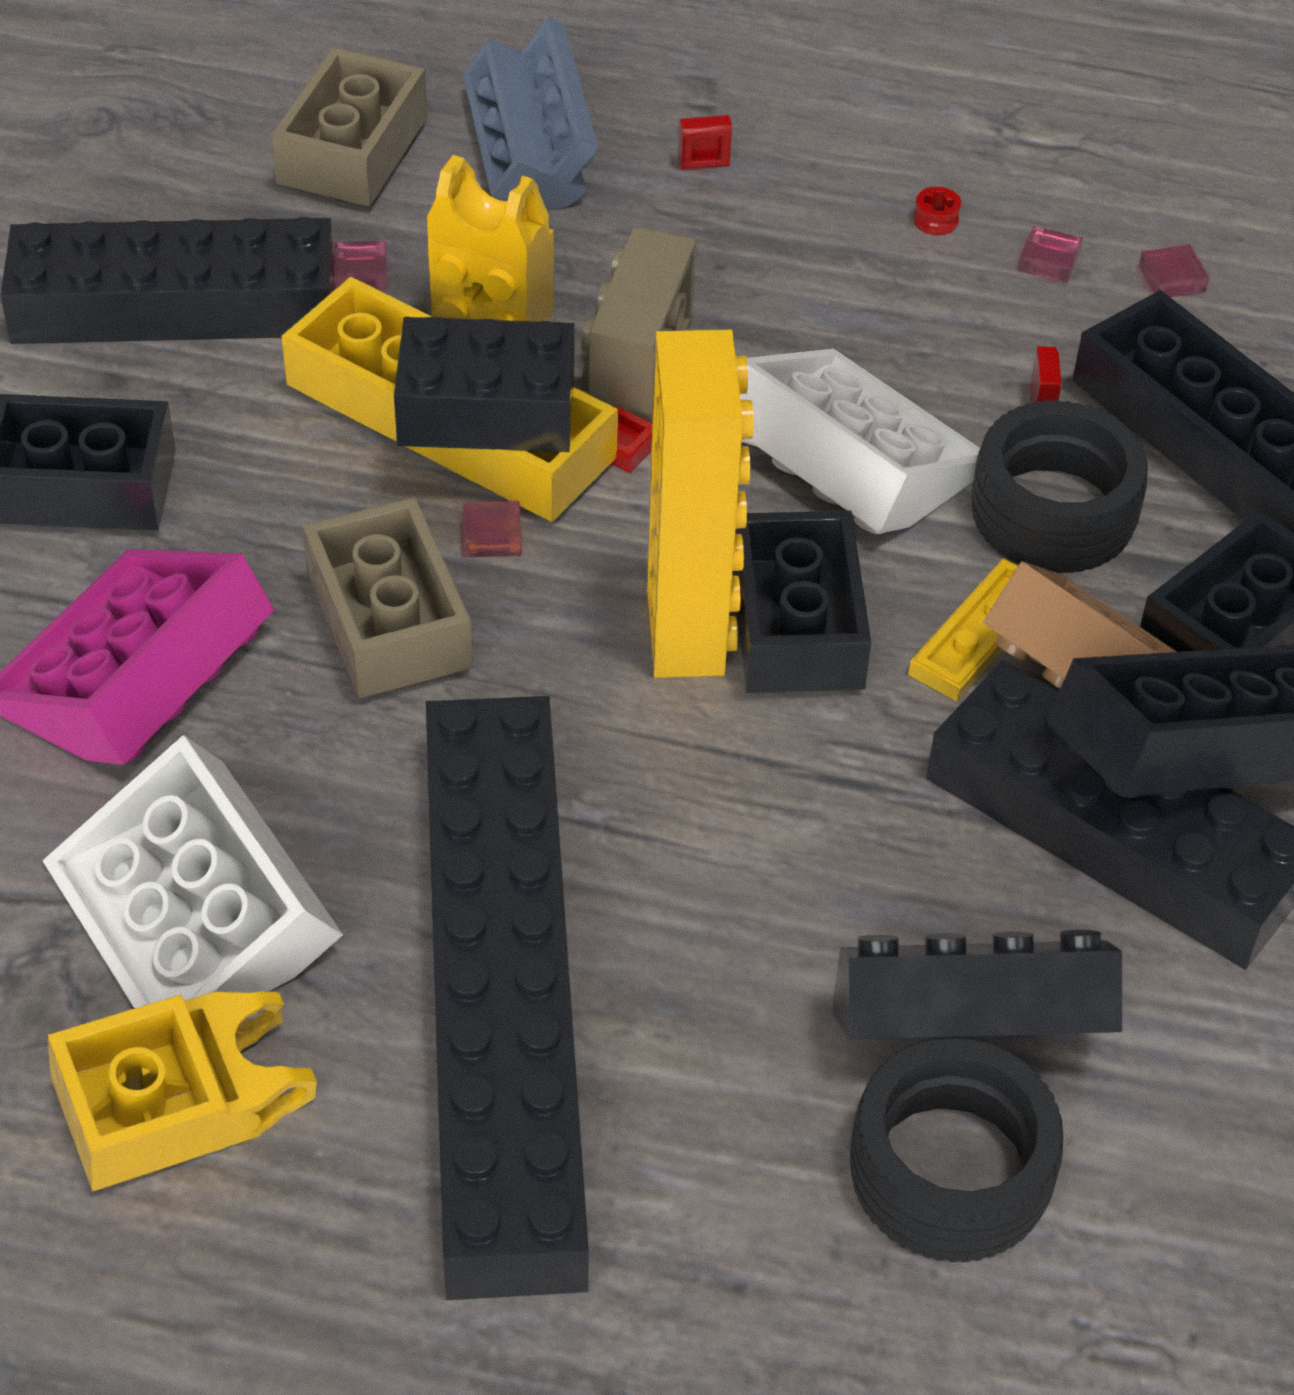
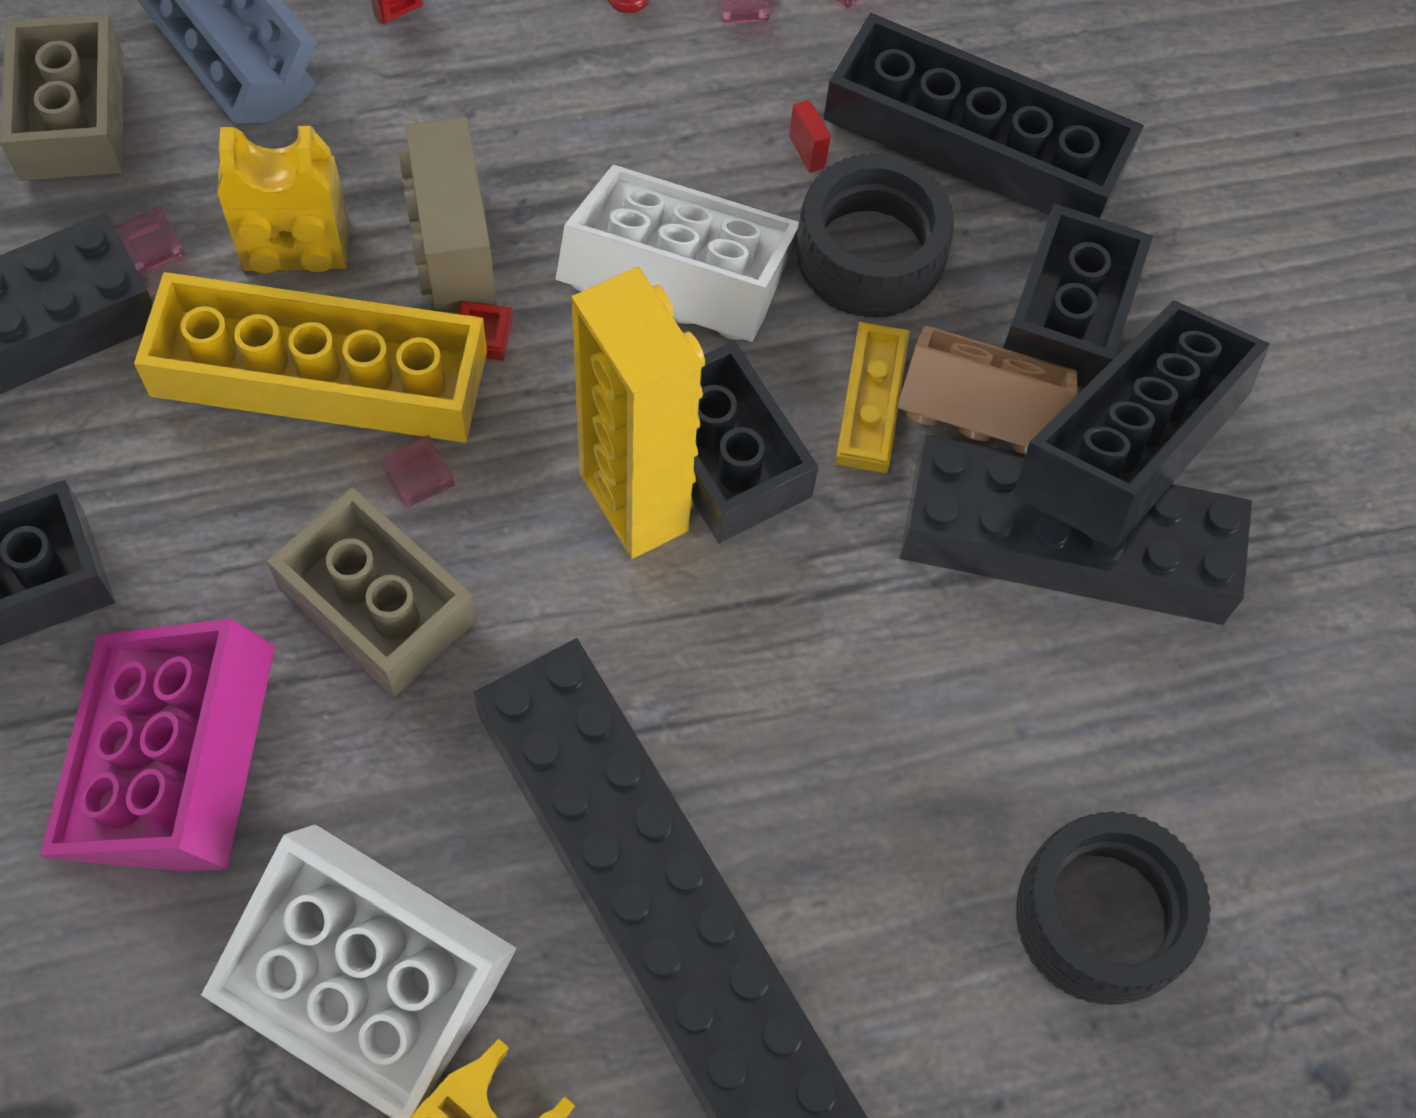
camera: 30 degrees left, 15 degrees up
(485, 384) = (363, 348): black brick -> none
(979, 987) = (1070, 768): black slope -> none

